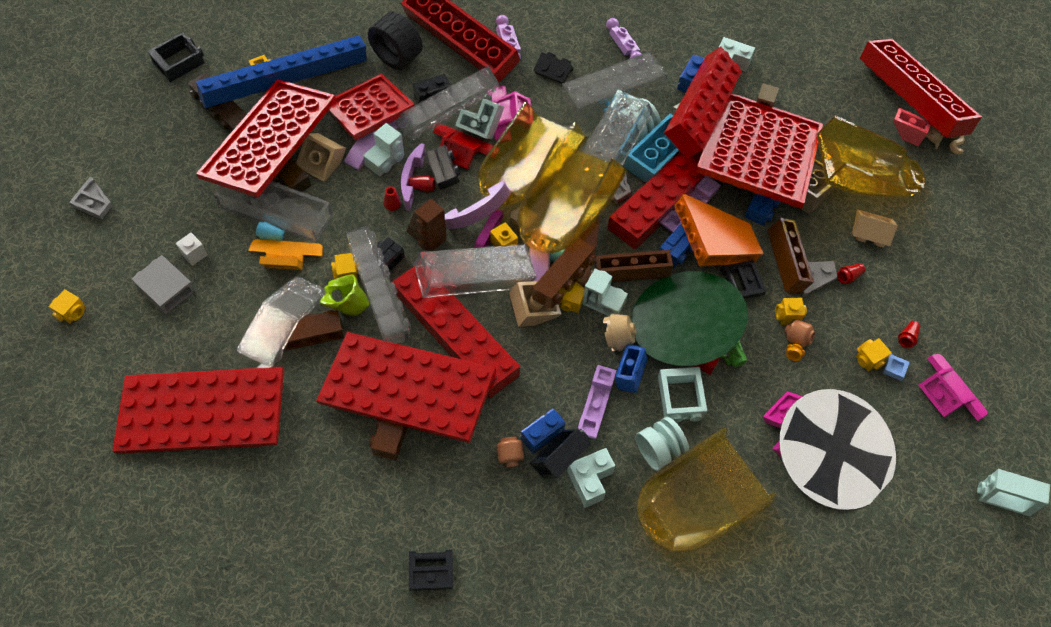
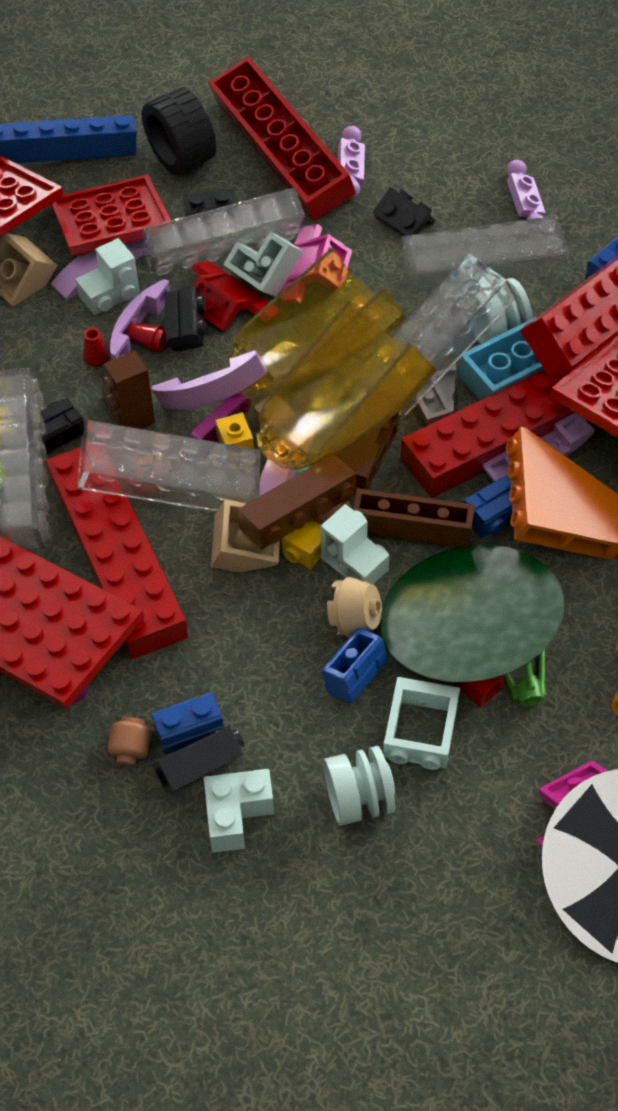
camera: 20 degrees right, 5 degrees down
(597, 401) = (286, 705): lavender slope -> none
(700, 496) = (393, 878): clear yellow windscreen -> none
(748, 276) = (593, 577): black plate -> none

